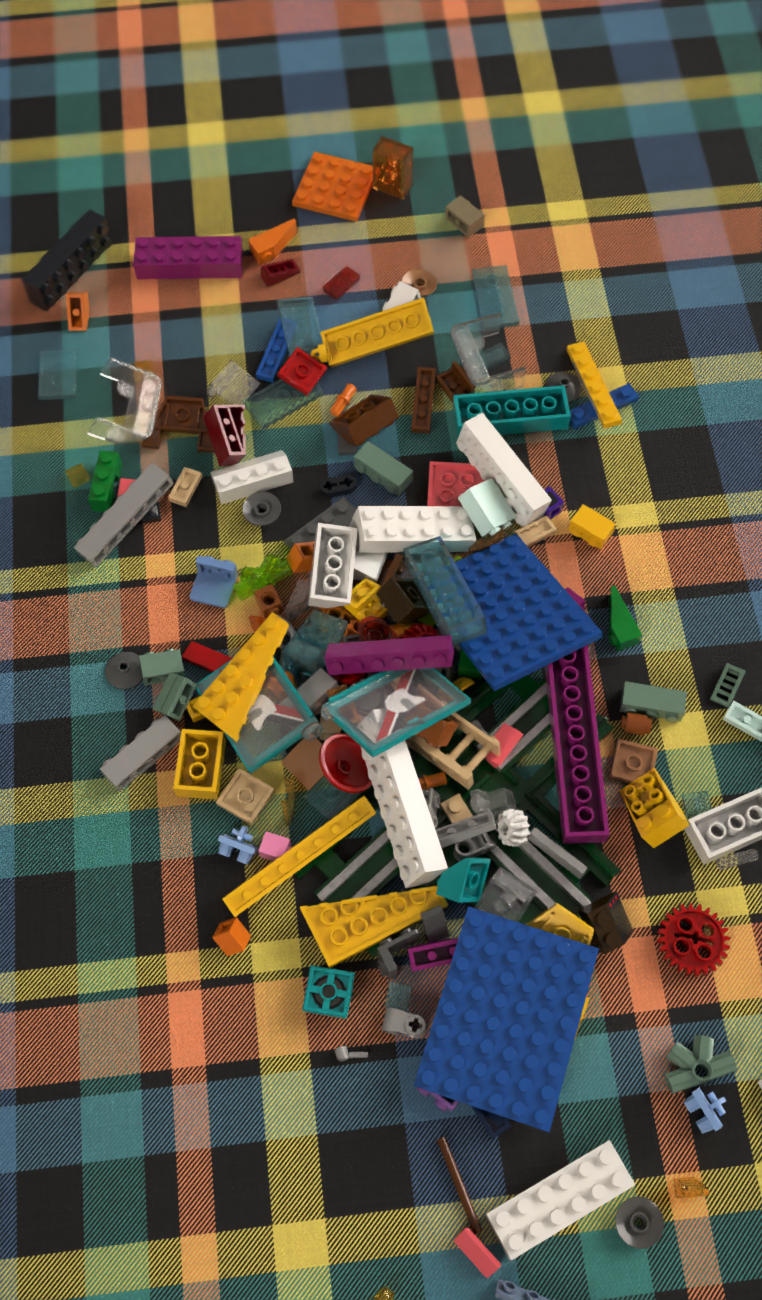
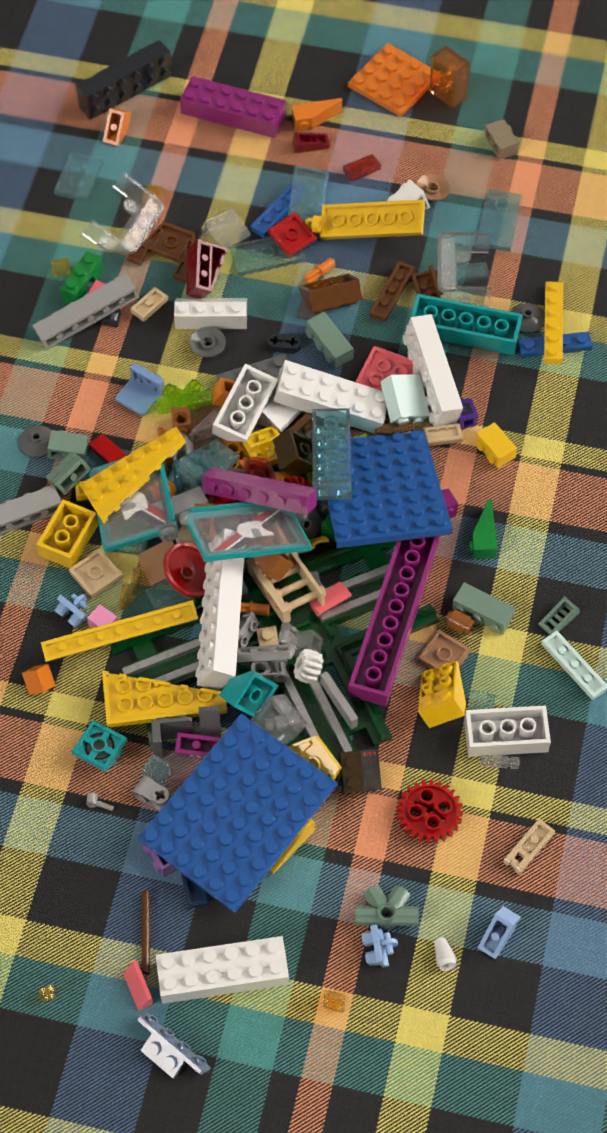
camera: 20 degrees right, 5 degrees down
(651, 1219) = (277, 1001): dark grey dish -> none

